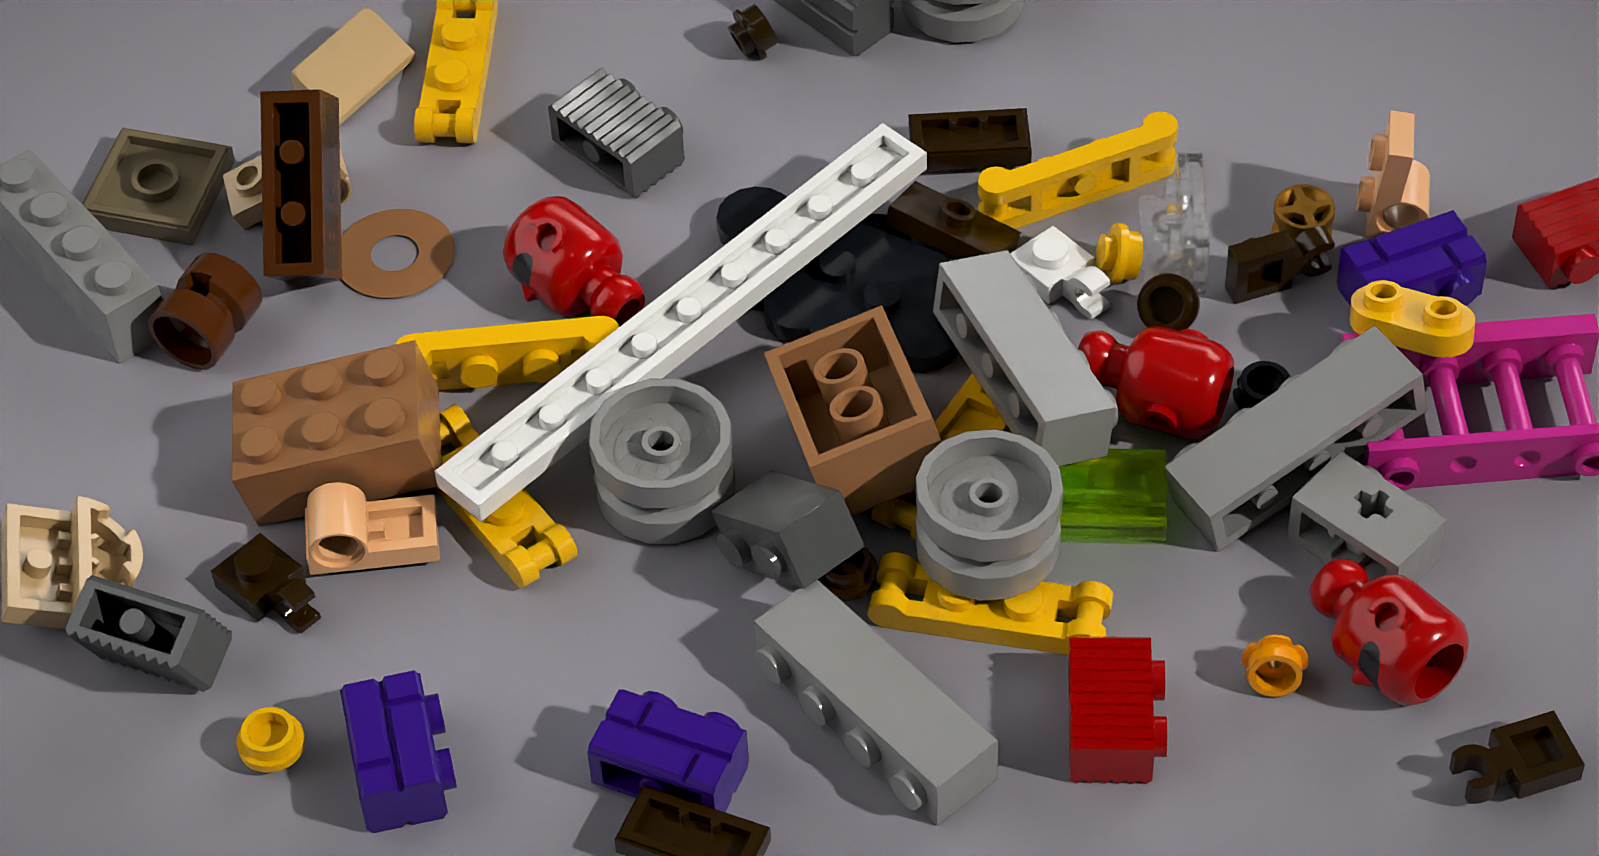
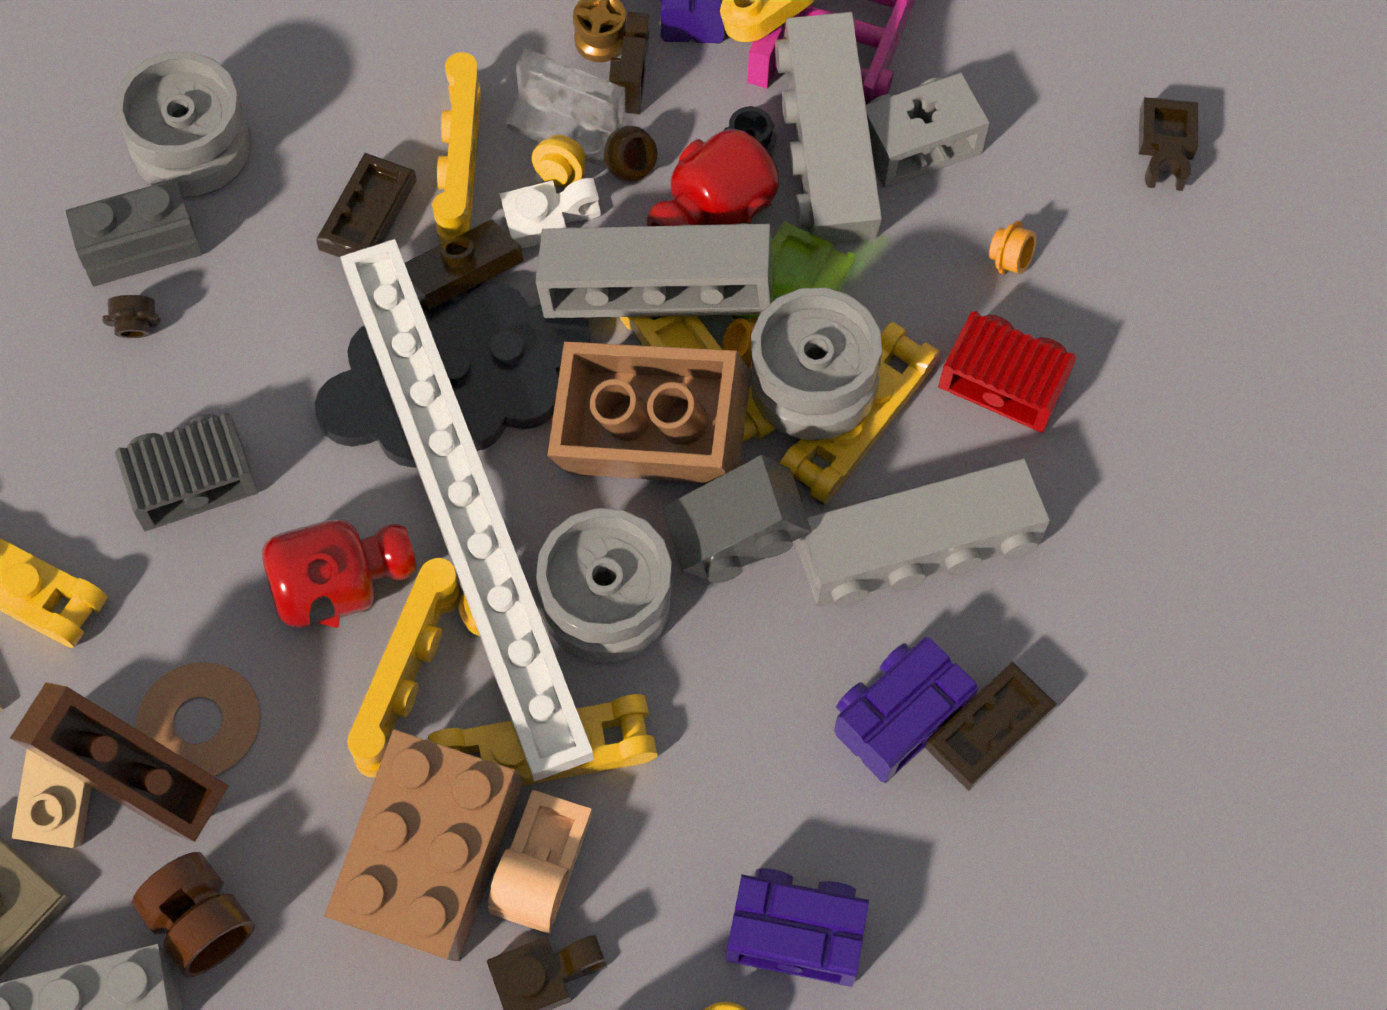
camera: 70 degrees left, 15 degrees up
(1390, 632) = (1032, 159): red piece -> none

